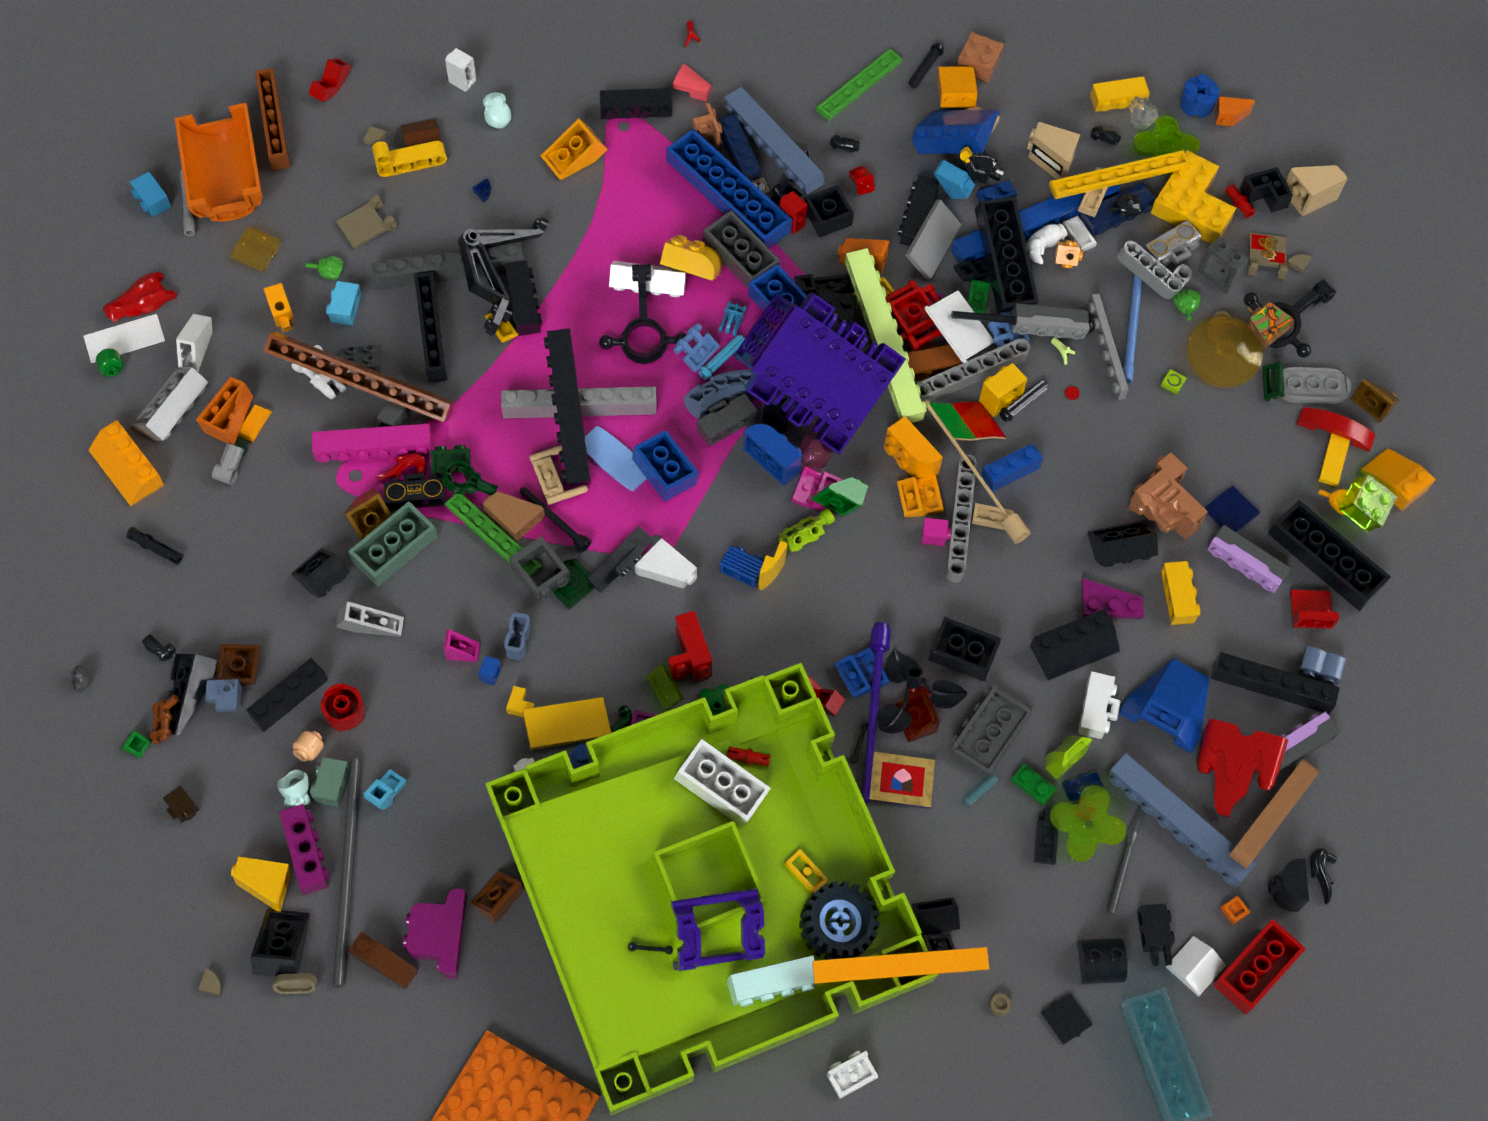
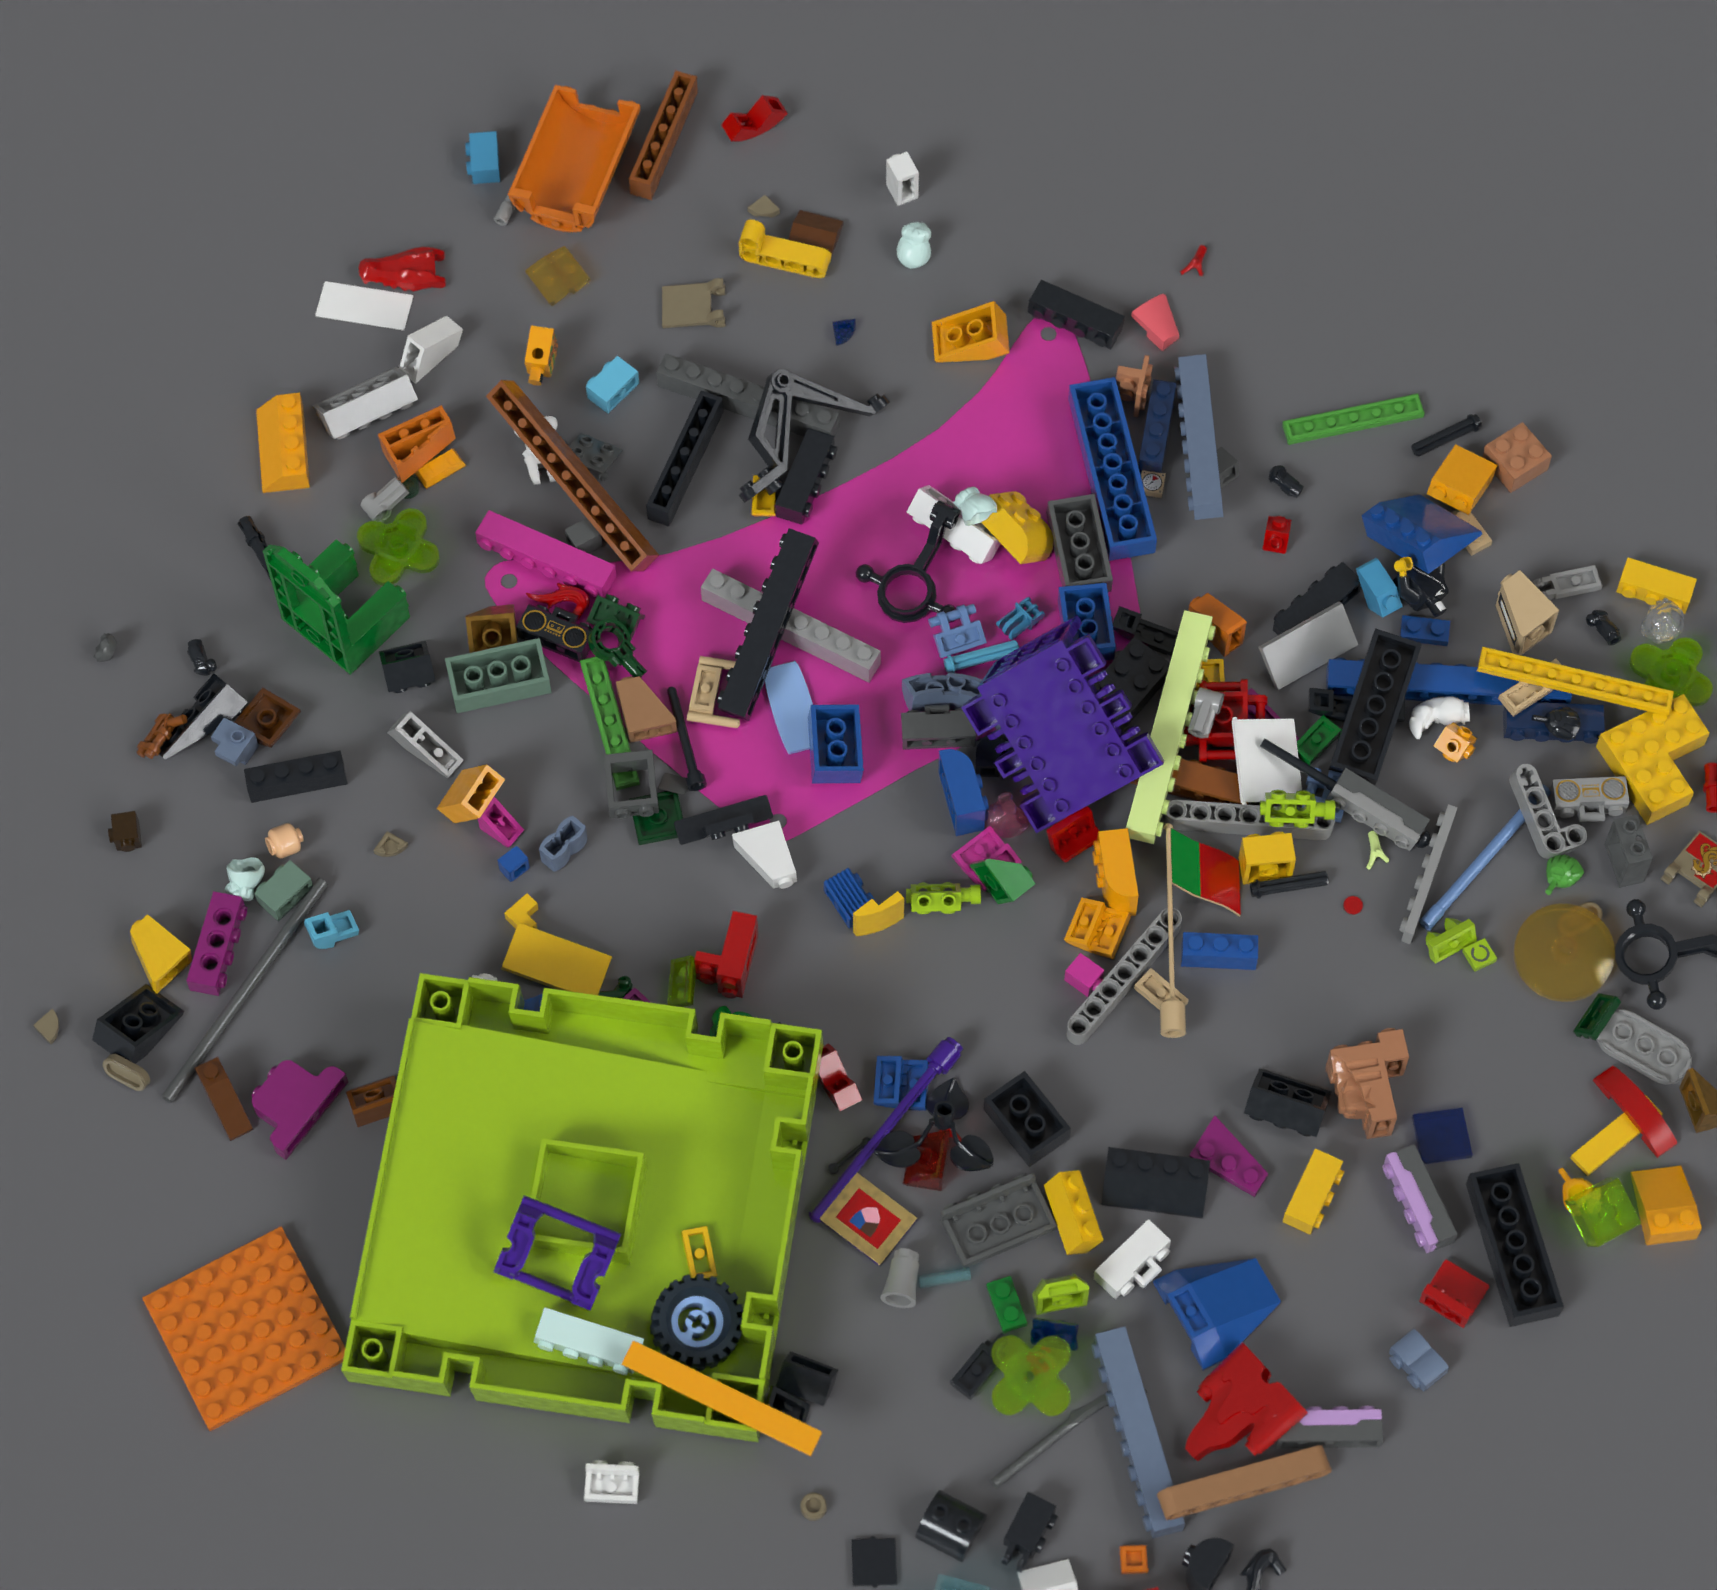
camera: 35 degrees right, 0 degrees up
(109, 362) = (331, 325): green head -> none
(135, 744) = (120, 746): green slope -> none
(215, 553) = (312, 605): none -> green bracket
(259, 492) = (398, 546): none -> clear neon green plant
(328, 267) = (622, 334): bright green piece -> none
(347, 717) = (337, 831): red brick -> none
(389, 707) = (390, 845): none -> dark tan tile
(429, 636) = (470, 793): none -> light orange brick
(632, 947) = (465, 1222): black hinge -> none
(660, 255) = (974, 506): none -> light aqua hair
(722, 783) = (663, 1110): white brick -> none
(748, 756) = (713, 1100): red pin -> none
(780, 190) = (1176, 507): black bracket -> none
(795, 209) = (1167, 531): red brick -> none
(829, 211) = (1210, 551): black brick -> none
(865, 442) = (1073, 834): none -> red bracket
(902, 309) = (1206, 706): none -> light grey piece
(955, 808) = (902, 1279): none -> light grey plant
(991, 350) = (1289, 811): none -> lime brick
(1038, 695) = (1073, 1212): none -> yellow brick
(1068, 116) = (1570, 582): none -> light grey hinge
(1078, 232) = (1490, 727): white tile -> none
(1153, 376) = (1455, 938): none -> lime tile
(1268, 322) = (1631, 945): torso -> none
(1275, 683) = (1350, 1348): black brick -> none

